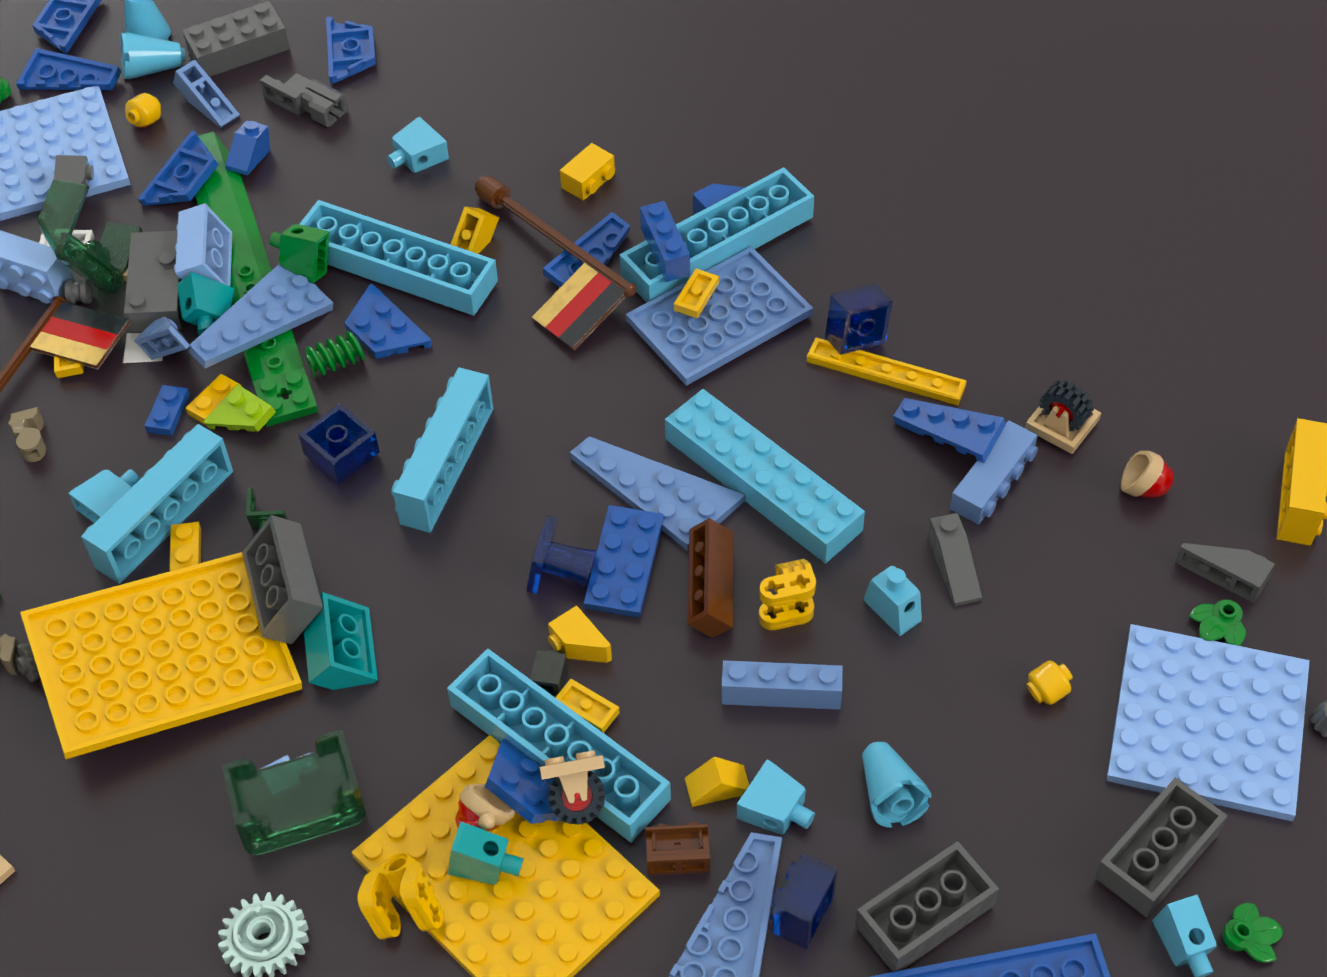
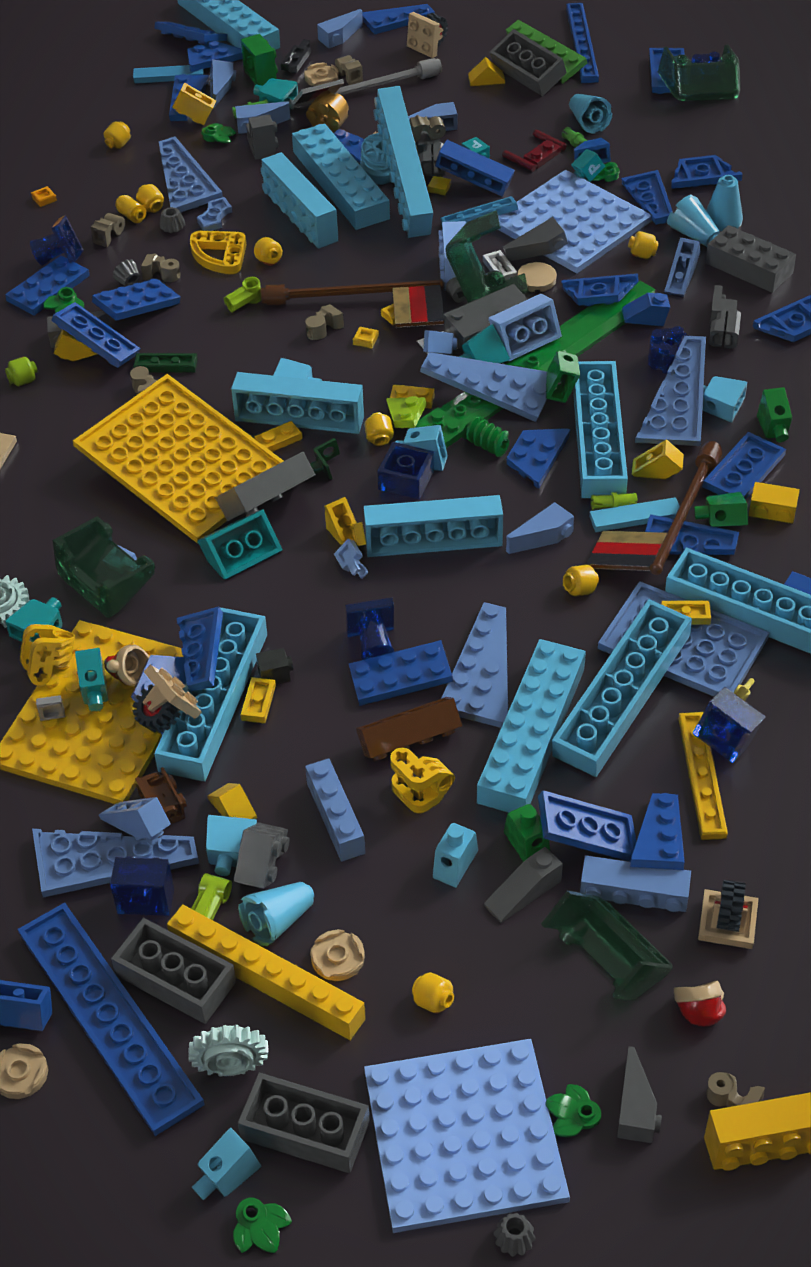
camera: 65 degrees right, 5 degrees down
(82, 406) = (365, 337): none -> yellow tile
(110, 210) = (539, 276): none -> tan tile
(167, 410) = (388, 377): blue plate -> none
(250, 445) = (379, 429): none -> yellow head
(309, 407) = (428, 438): none -> medium azure torso
(321, 156) = (664, 346): none -> clear blue brick
(328, 899) = (34, 613): none -> teal torso
(376, 534) = (339, 520): none -> yellow slope
(405, 522) = (358, 534): none -> yellow tile
(410, 184) = (679, 401): none -> medium blue wing
(428, 545) = (348, 558): none -> light blue plate
(478, 117) = (775, 414): none -> green torso
(492, 918) = (50, 707): none -> light grey tile
(499, 290) = (613, 500): none -> lime pin
(499, 722) = (200, 642): none -> blue wing
(502, 358) = (542, 530): none -> medium blue slope
(525, 173) = (744, 465): none -> blue plate
(526, 283) = (632, 514): none -> medium azure tile
(578, 637) = (316, 670): yellow slope -> none
(580, 207) = (731, 509): none -> green torso
(593, 359) = (580, 580): none -> yellow head
(665, 241) = (710, 564): blue brick -> none
(703, 877) = (138, 817): none -> medium blue slope
(766, 378) = (621, 688): none -> medium azure brick
(810, 297) = (743, 690): none -> light yellow hand
(815, 768) = (258, 854): none -> dark grey brick
(833, 839) = (211, 893): none -> lime piece
(898, 530) = (524, 828): none -> green torso
(922, 476) = (586, 826): none -> blue plate
(960, 753) = (337, 955): none -> tan tile
(961, 820) = (272, 973): none -> yellow brick
(1062, 882) = (228, 1050): none -> light aqua gear
(1066, 515) = (610, 941): none -> clear green windscreen
(1259, 495) = (723, 1091): none -> dark tan leg

